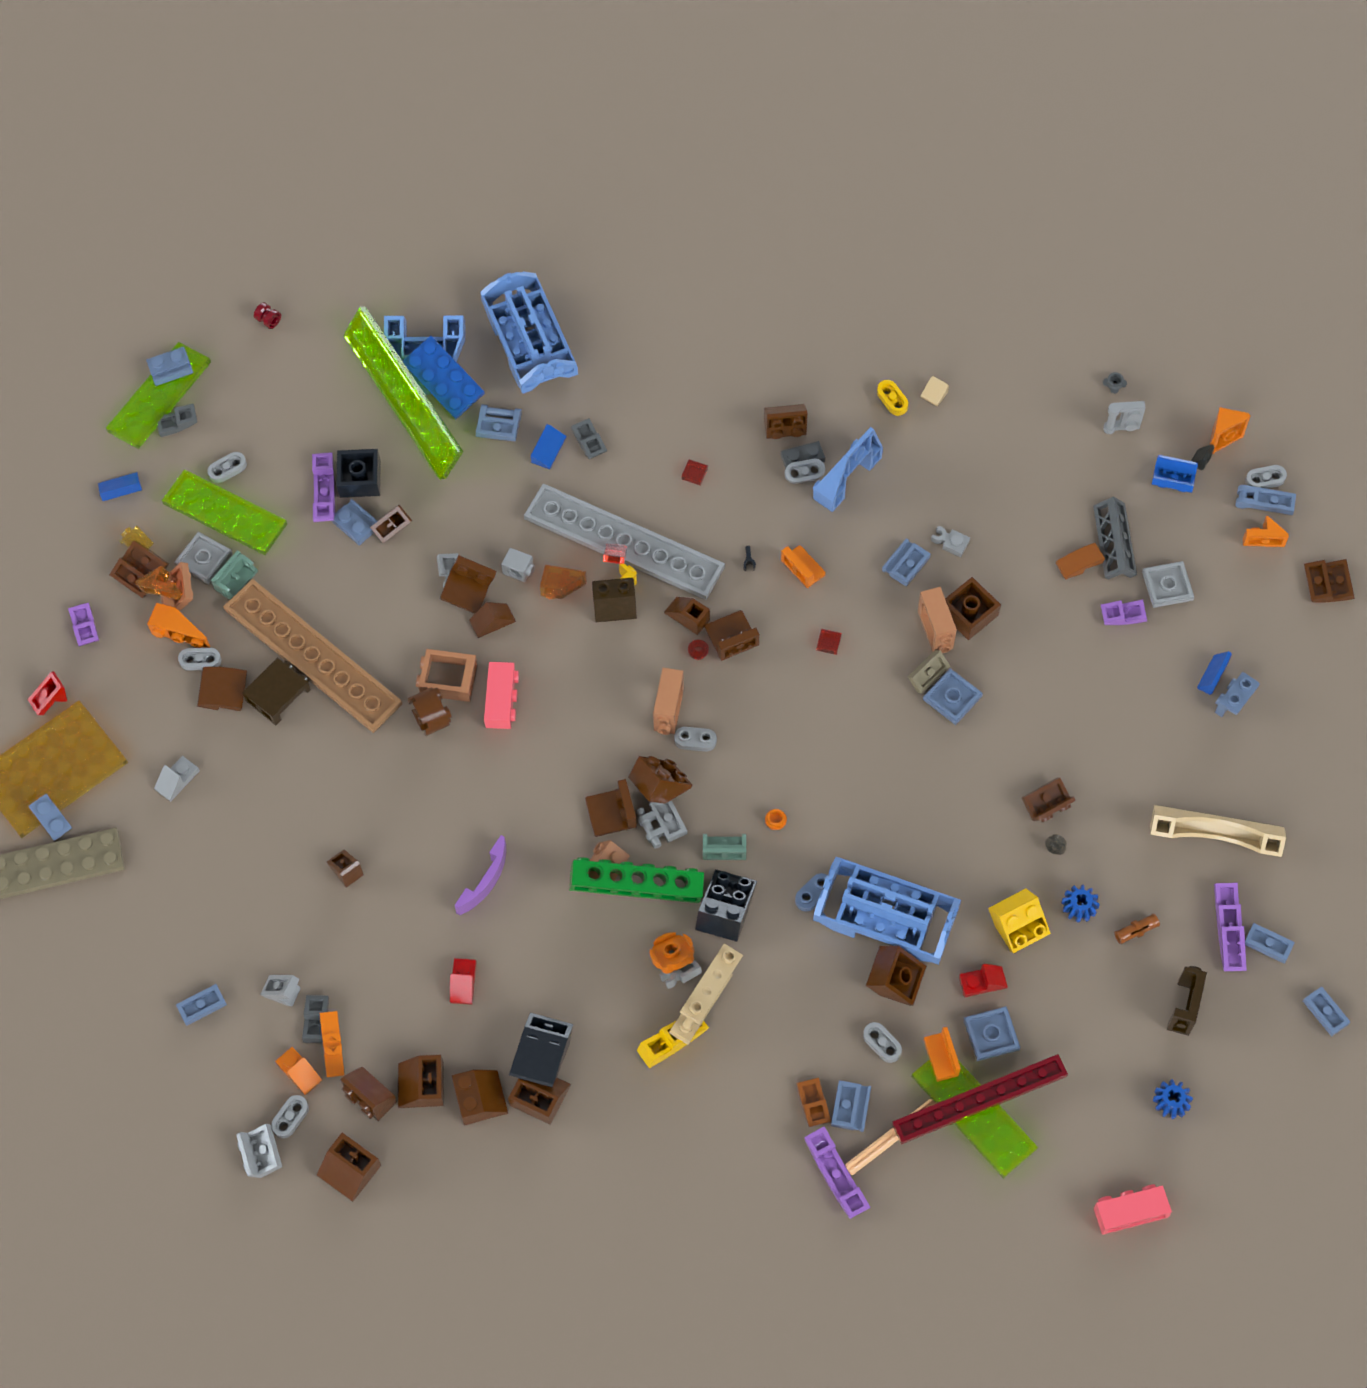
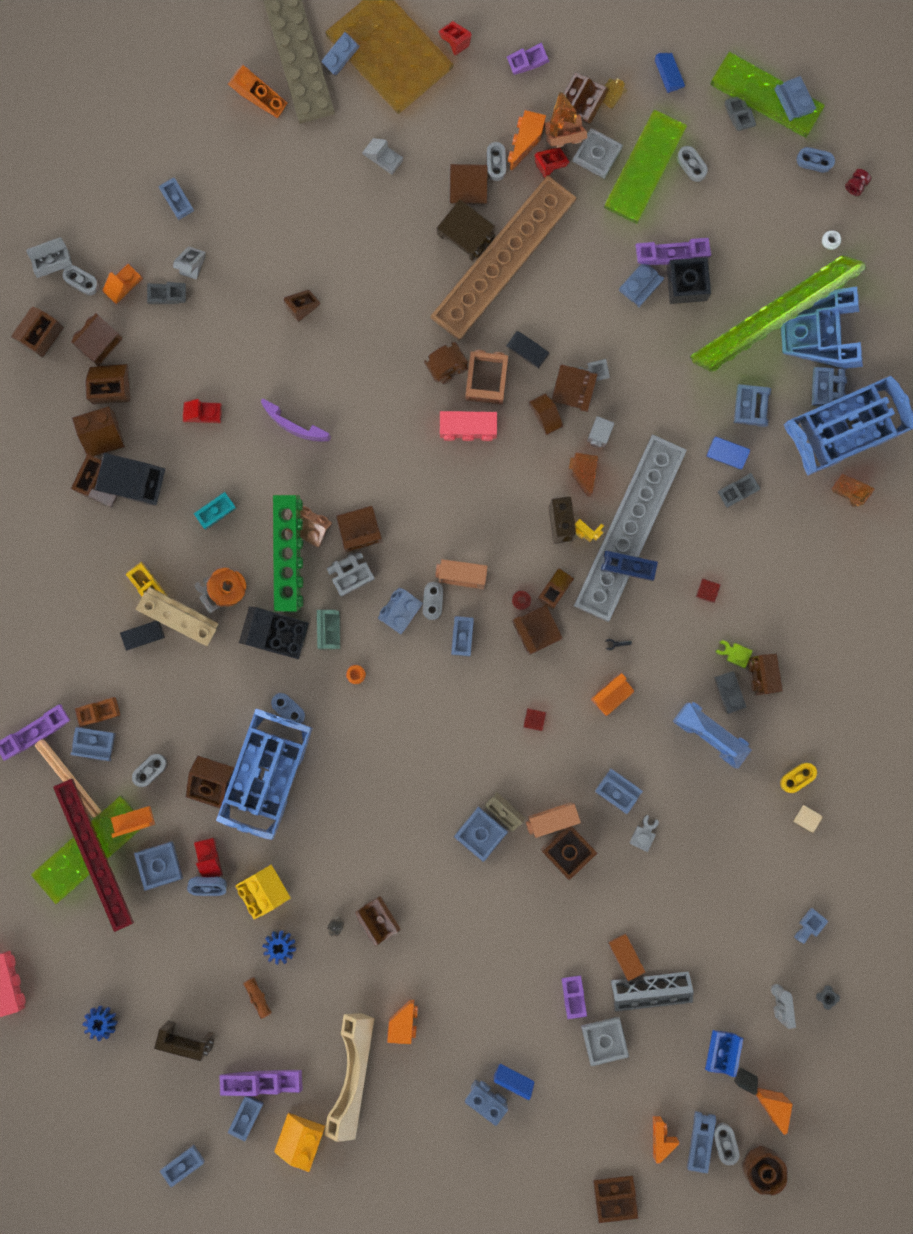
camera: 85 degrees right, 20 degrees up
(80, 912) = (257, 92): none -> orange slope
(208, 604) = (550, 160): none -> red slope
(234, 575) = (580, 182): sand green hinge -> none
(235, 354) = (815, 158): none -> sand blue plate
(323, 339) = (831, 235): none -> white plate
(332, 1044) = (143, 308): orange piece -> none
(391, 523) = (637, 314): slope -> none
(418, 633) = (528, 349): none -> black slope
(443, 377) = (796, 349): blue plate -> none
(484, 357) = (823, 385): none -> sand blue plate
(581, 966) = (215, 511): none -> teal plate
(595, 334) = (853, 490): none -> clear orange slope
(615, 553) = (611, 519): clear red tile -> none
(659, 779) = (386, 569): reddish brown slope -> none
(666, 538) = (630, 566): none -> dark blue plate
(705, 771) = (400, 610): none -> sand blue bracket
(724, 1047) = (142, 635): none -> black slope
(736, 708) = (462, 636): none -> sand blue plate
(762, 448) = (736, 654): none -> lime plate
(804, 471) = (711, 694): light grey plate -> none
(1014, 979) = (207, 886): none -> sand blue plate
(1042, 391) = (812, 924): none -> sand blue plate
(1158, 779) = (401, 1024): none -> orange slope
(1289, 441) = (765, 1159): none -> reddish brown brick
(1291, 886) = (299, 1141): none -> light orange slope

